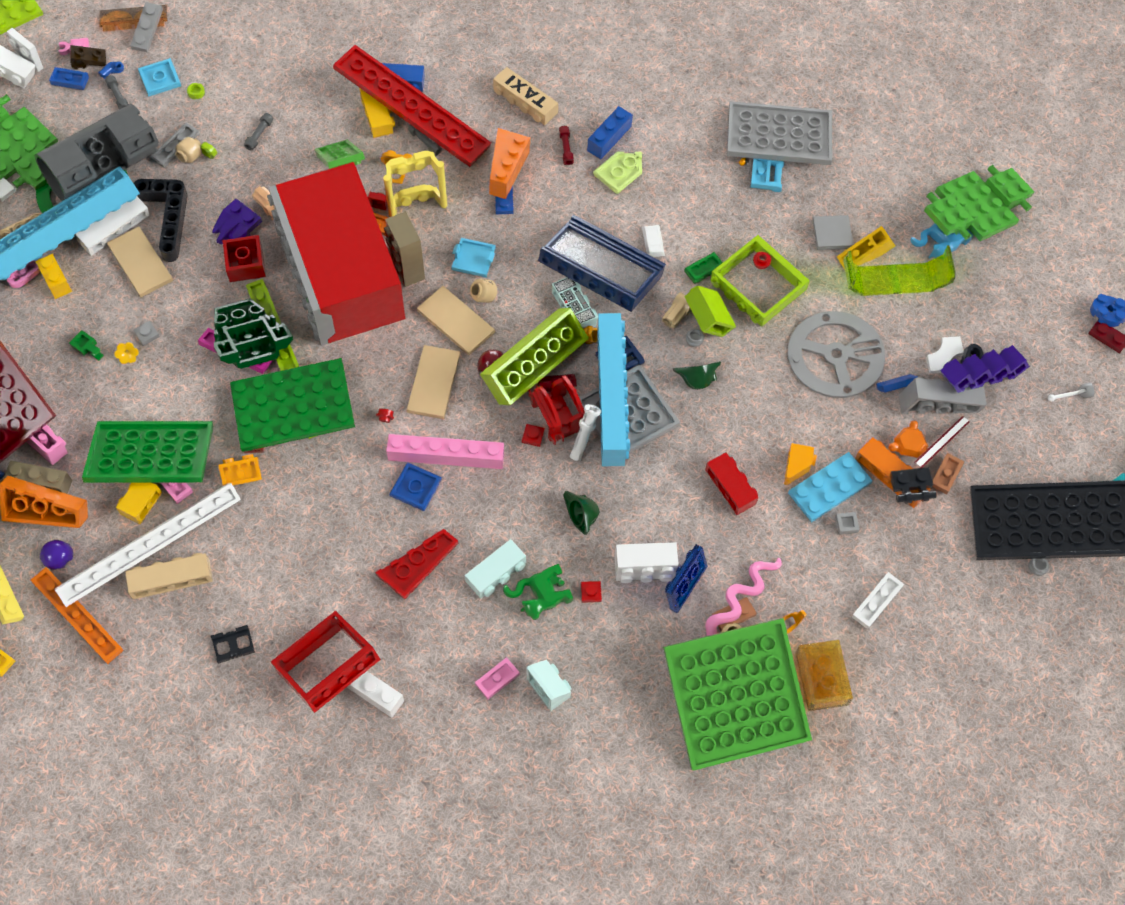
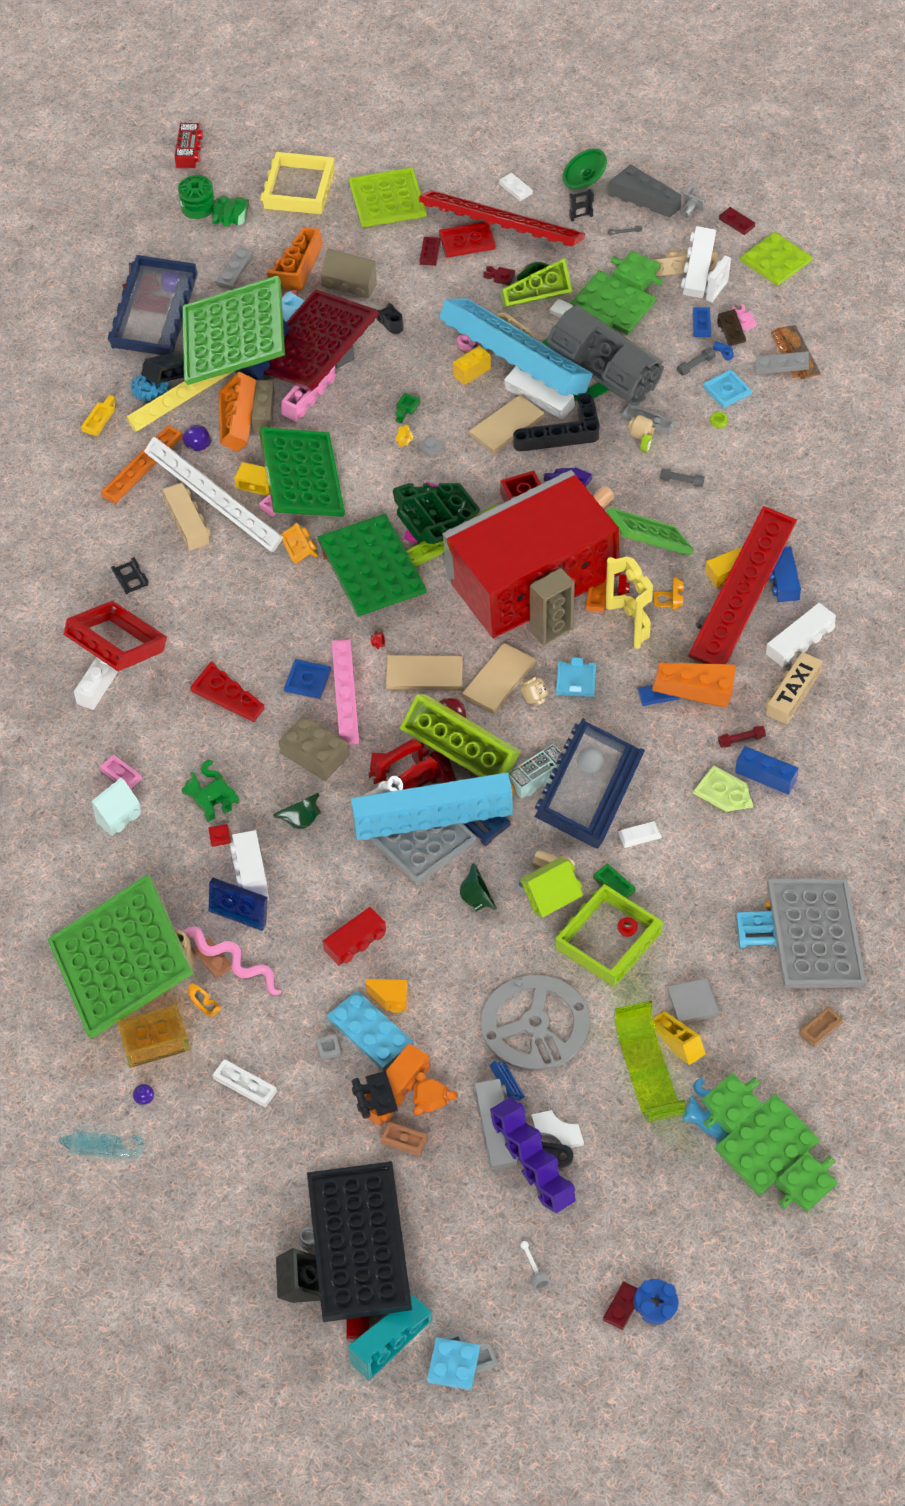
camera: 85 degrees right, 10 degrees down
(469, 79) = (801, 635): none -> white brick
(496, 569) = (229, 753): light aqua brick -> none
(508, 488) = (314, 748): none -> dark tan brick
(866, 150) = (821, 1027): none -> medium nougat plate
(880, 694) = (143, 1094): none -> dark purple plate
(930, 740) = (100, 1145): none -> clear light blue plate
(941, 442) = (438, 1126): sticker -> none
(1081, 577) = (297, 1276): none -> pearl dark grey slope

